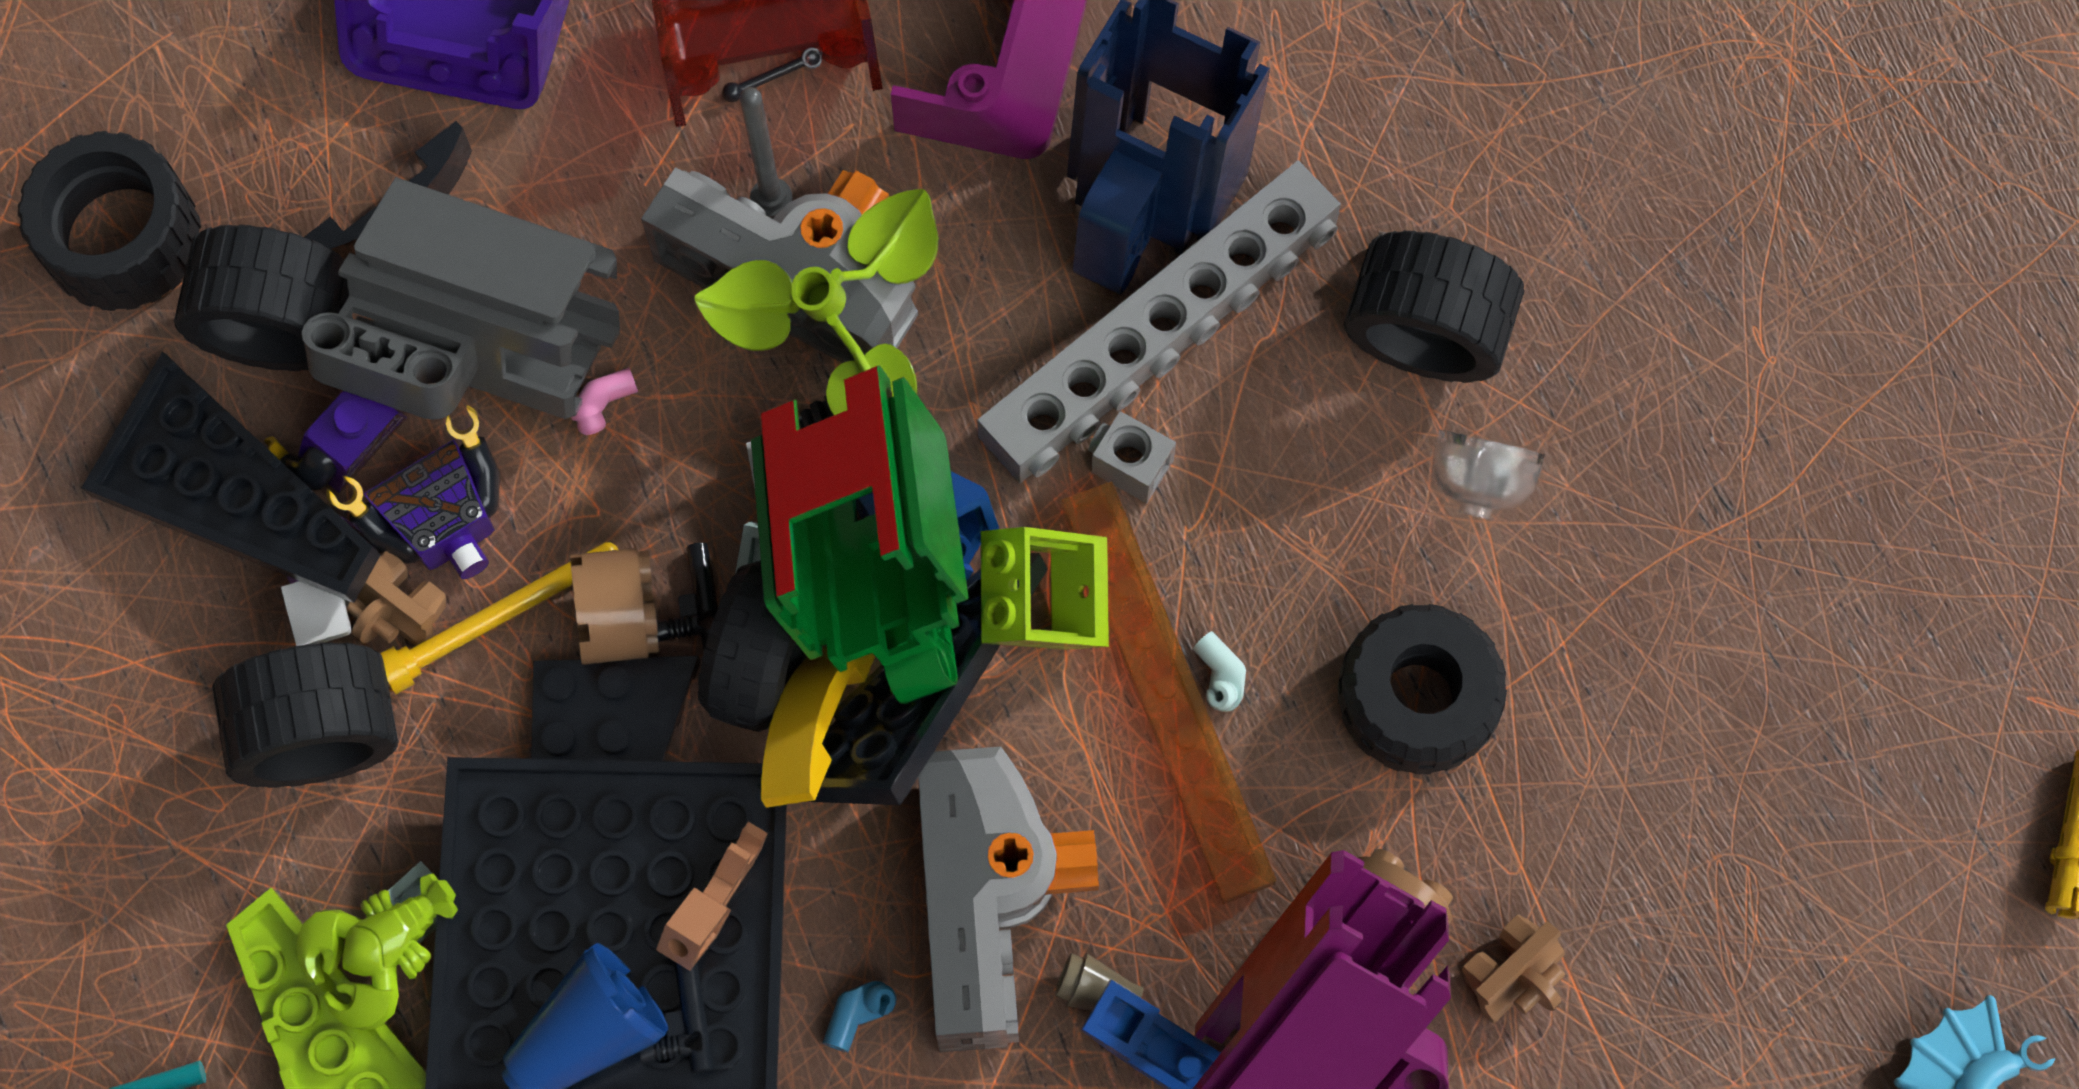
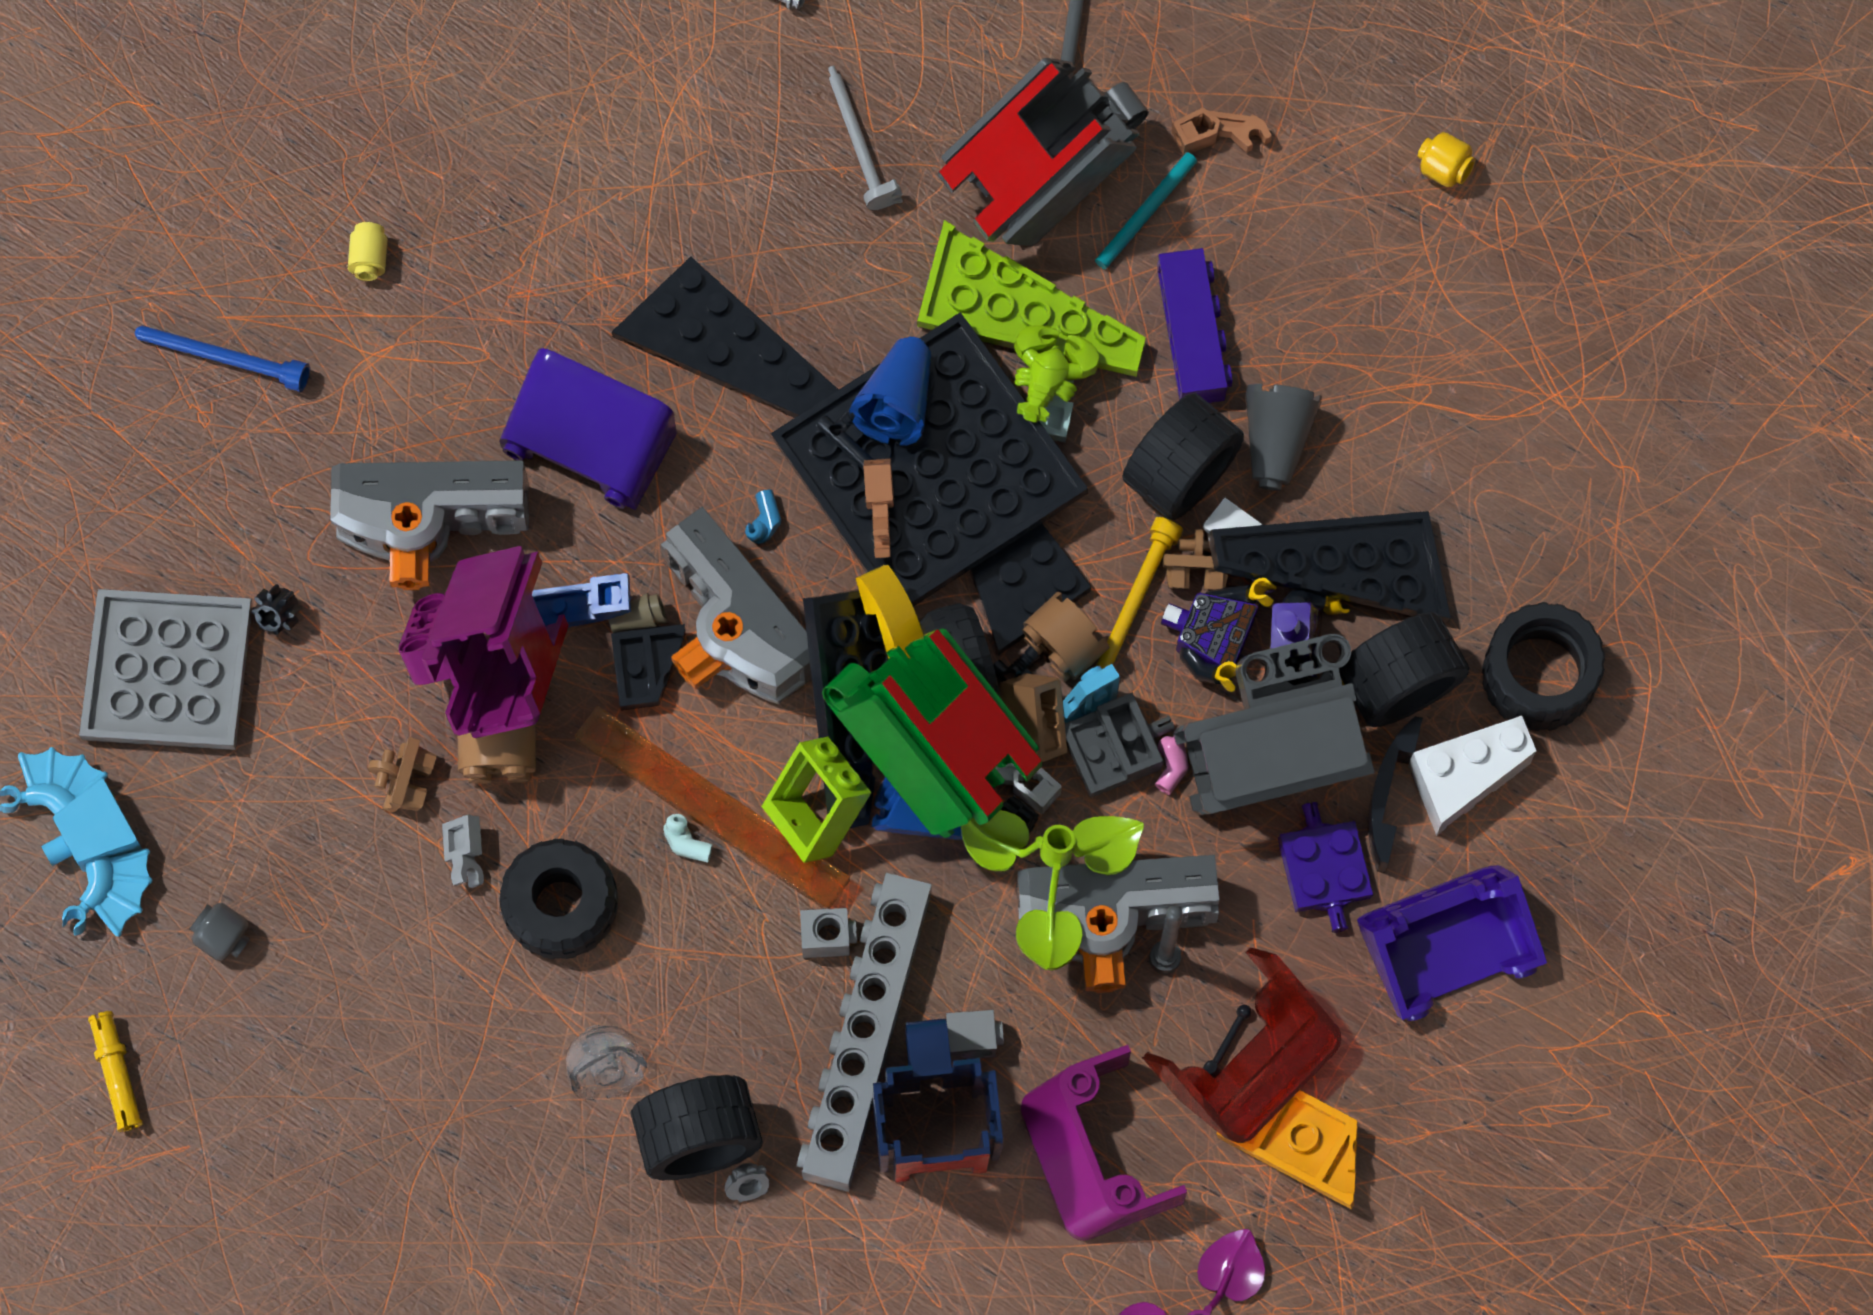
camera: 145 degrees right, 0 degrees up
(159, 902) = (1192, 324): none -> dark purple brick
(165, 693) = (1278, 431): none -> dark grey cone
(283, 170) = (1469, 768): none -> white wedge
(529, 170) = (1325, 866): none -> dark purple plate
(637, 517) = (1095, 689): none -> medium azure wing
(649, 456) = (1115, 745): none -> dark grey plate
(711, 539) = (1039, 709): none -> medium nougat arch
(1042, 243) = (973, 1034): none -> light grey brick
(1130, 920) = (645, 664): none -> black wing
(1495, 831) = (461, 845): none -> light grey plate
(1860, 919) = (220, 932): none -> dark grey head

